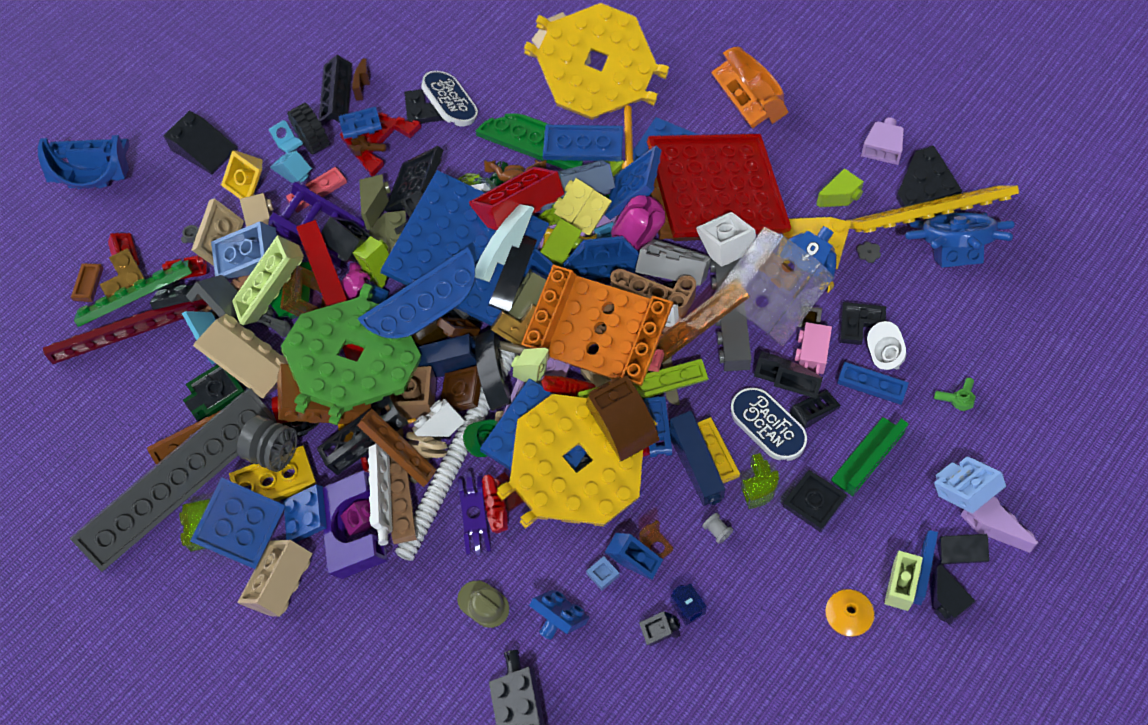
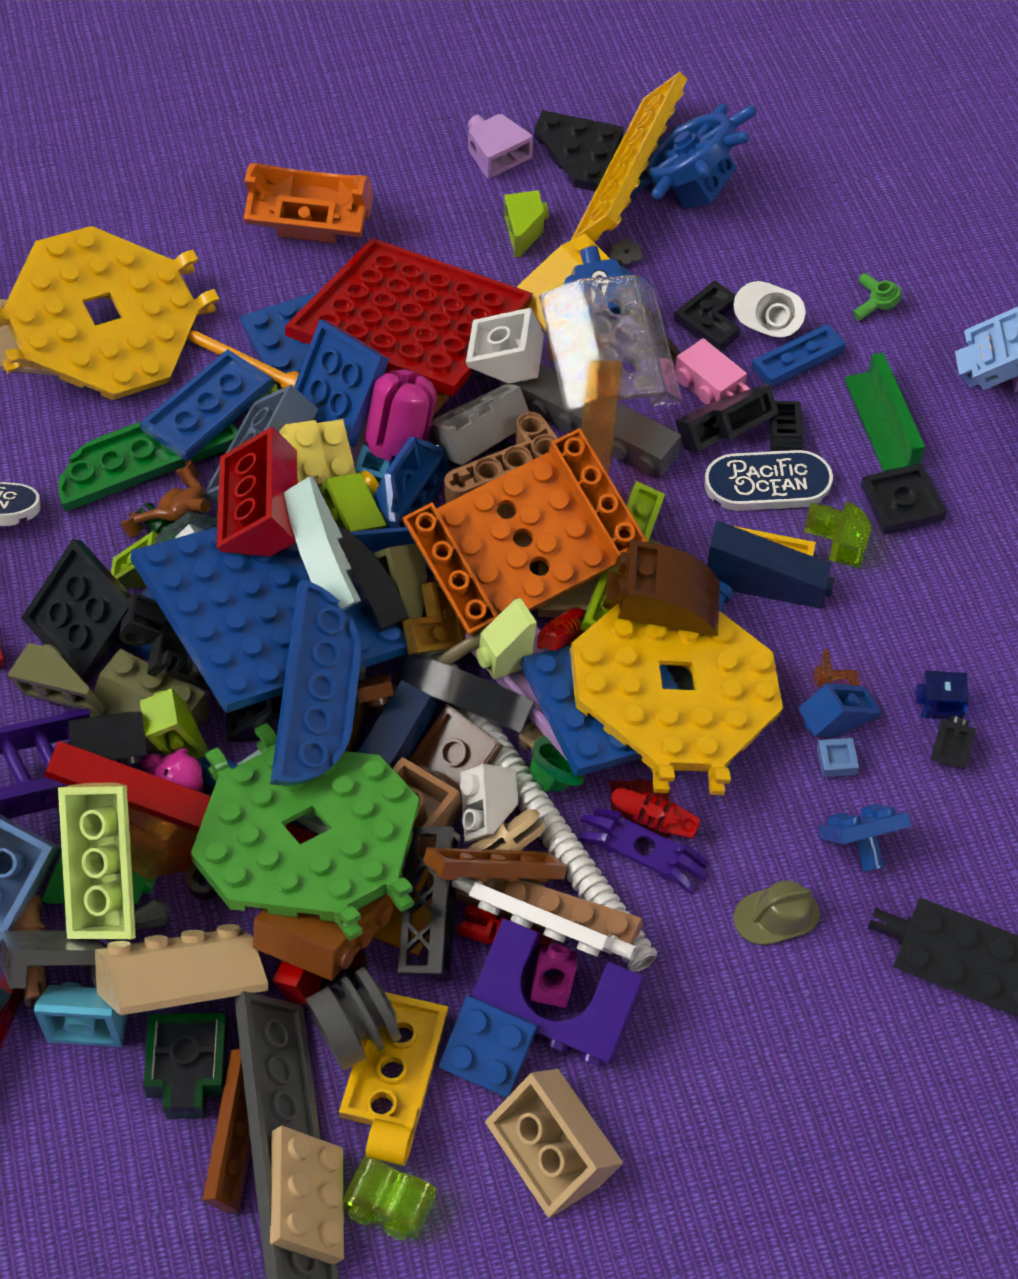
camera: 60 degrees left, 5 degrees down
(172, 486) = (307, 1195): none -> tan plate
(237, 523) = (441, 1134): blue plate -> none
(717, 528) = (867, 607): light grey bush -> none

